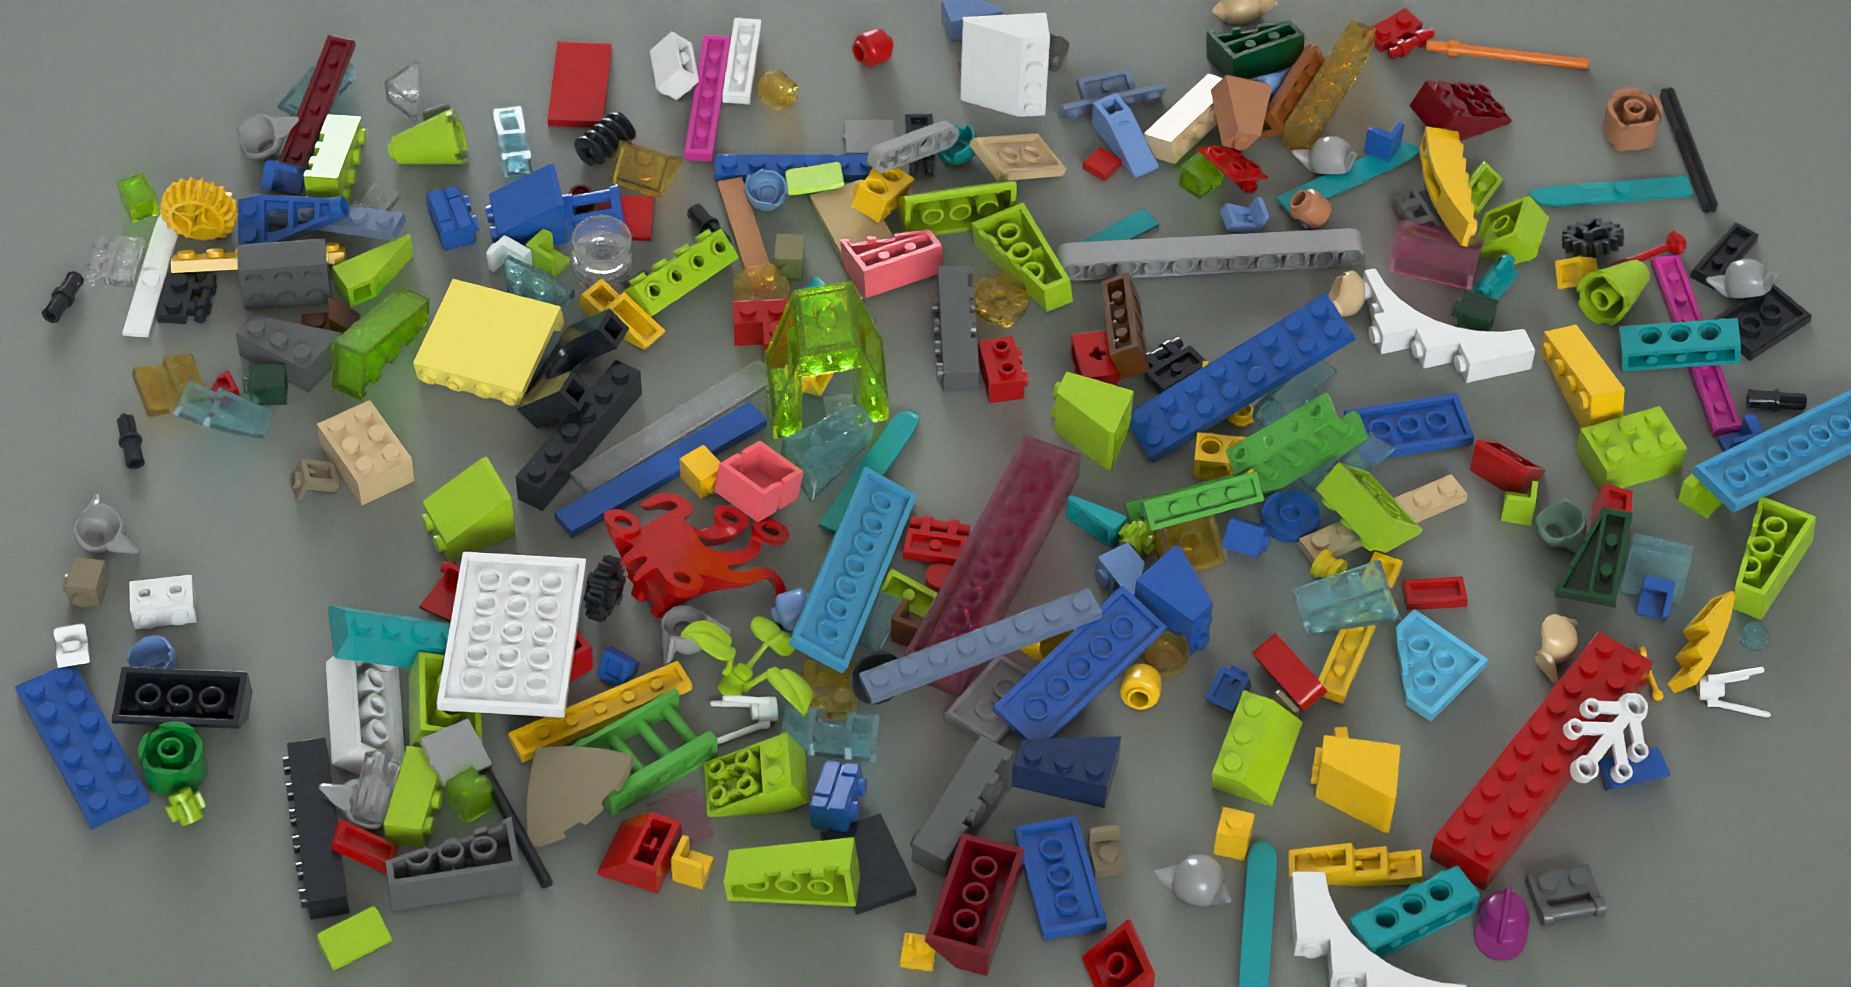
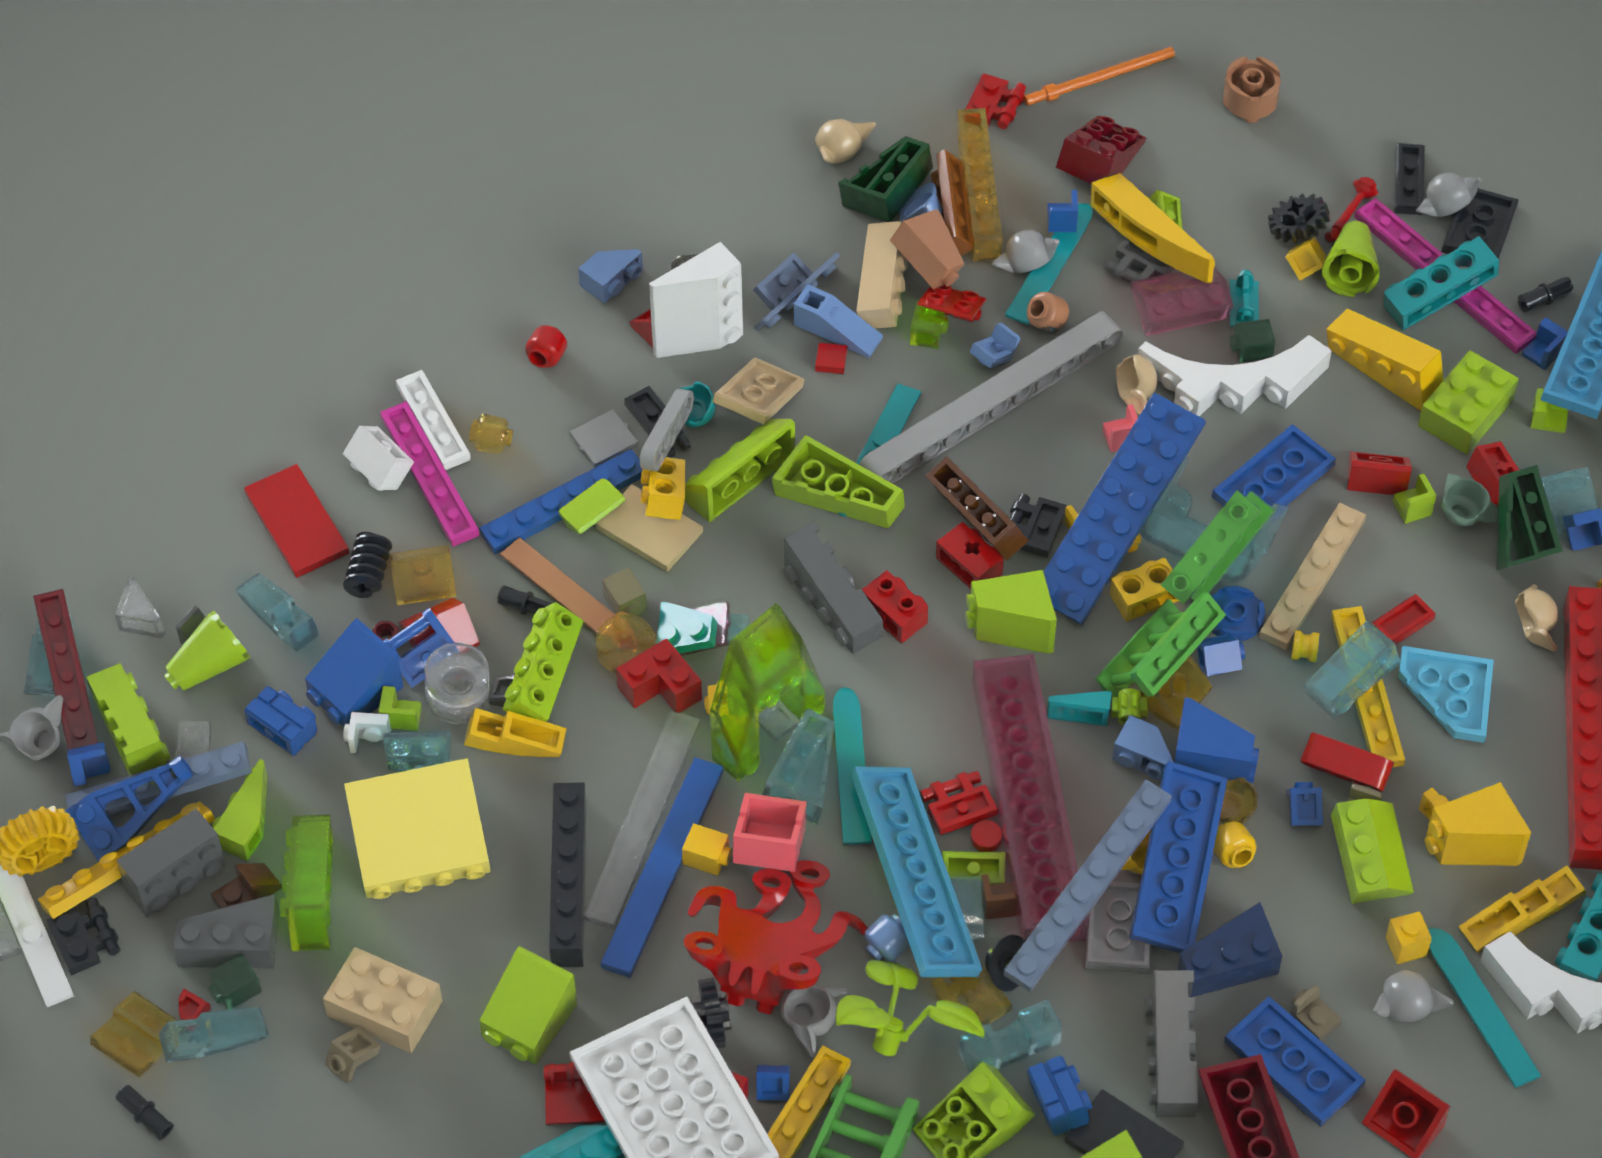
camera: 30 degrees left, 5 degrees up
(557, 388) = (502, 786): black arch -> none
(761, 709) = (928, 1050): white plant -> none
(765, 190) = (555, 539): medium blue hair -> none
(892, 262) = (723, 553): coral wedge -> none
(1003, 312) = (854, 529): clear yellow plate -> none
(1367, 508) = (1304, 574): lime slope -> none
(1513, 230) = (1231, 242): lime slope -> none
(1612, 192) = (1277, 164): teal piece -> none
(1688, 150) = (1314, 95): black axle -> none

